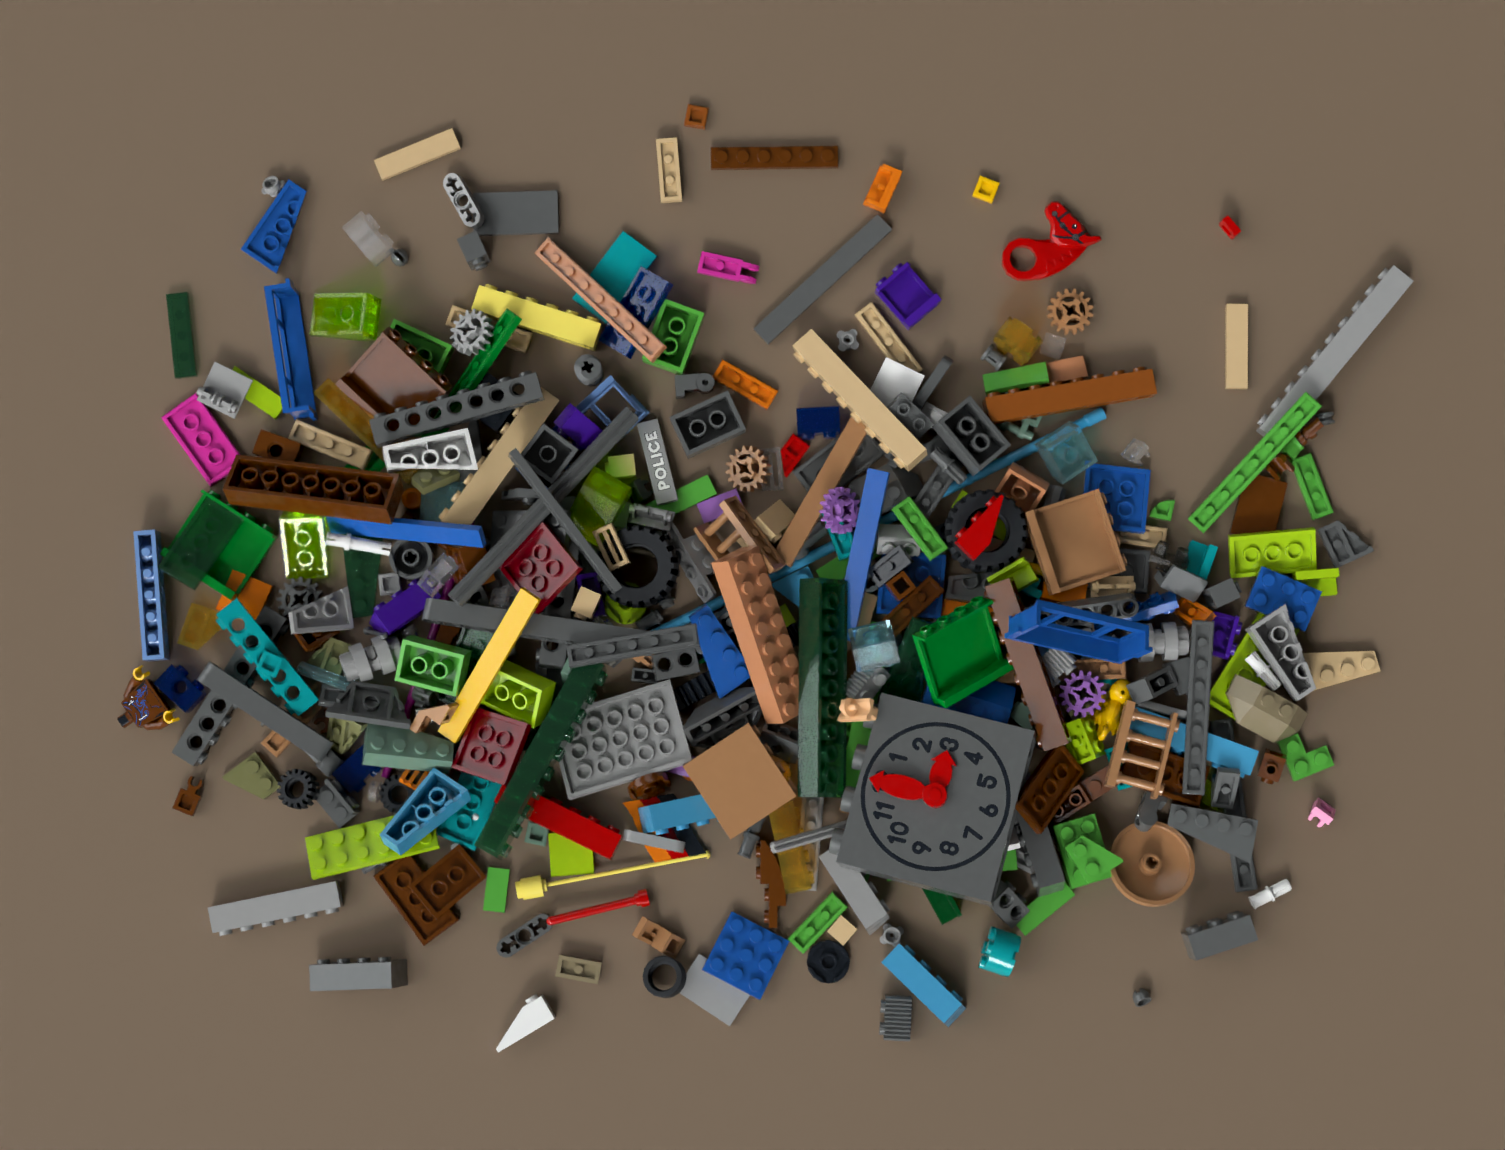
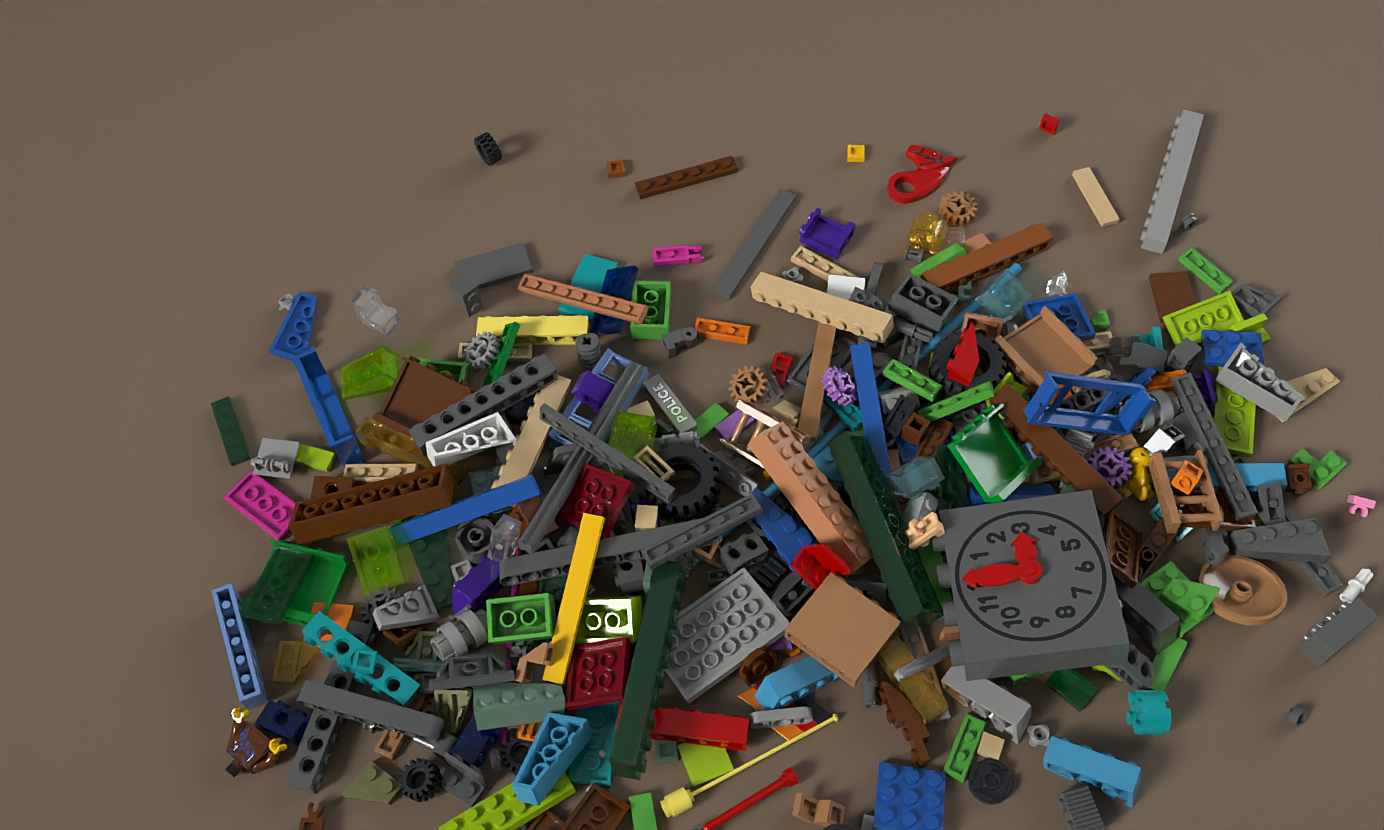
camera: 15 degrees left, 25 degrees down
(356, 543) = (424, 542): white pin -> none
(396, 260) = (404, 325): dark grey hinge -> none
(412, 498) = (463, 493): orange tile -> none
(417, 154) = (402, 250): tan tile -> none
(431, 479) = (479, 464): olive wing -> none
(455, 197) = (445, 262): light grey beam -> none
(549, 453) = (577, 407): dark grey brick -> none
(550, 44) = (487, 148): none -> black tyre
(669, 170) = (607, 205): tan plate -> none
(707, 424) = (702, 363): dark grey brick -> none
(738, 708) = (817, 562): none -> red bracket
(817, 422) = (792, 337): clear blue brick -> none
(883, 188) = (777, 171): orange hinge -> none
(952, 574) = (957, 402): none -> bright green tile
(1085, 743) = (1130, 510): lime bracket -> none
(1147, 739) = (1187, 477): none -> orange bracket
(1254, 462) = (1154, 262): bright green tile -> none
(1263, 671) = (1248, 405): white axle -> none
(1263, 710) = (1265, 433): dark tan wedge -> none
(1291, 450) = (1177, 243): reddish brown piece -> none

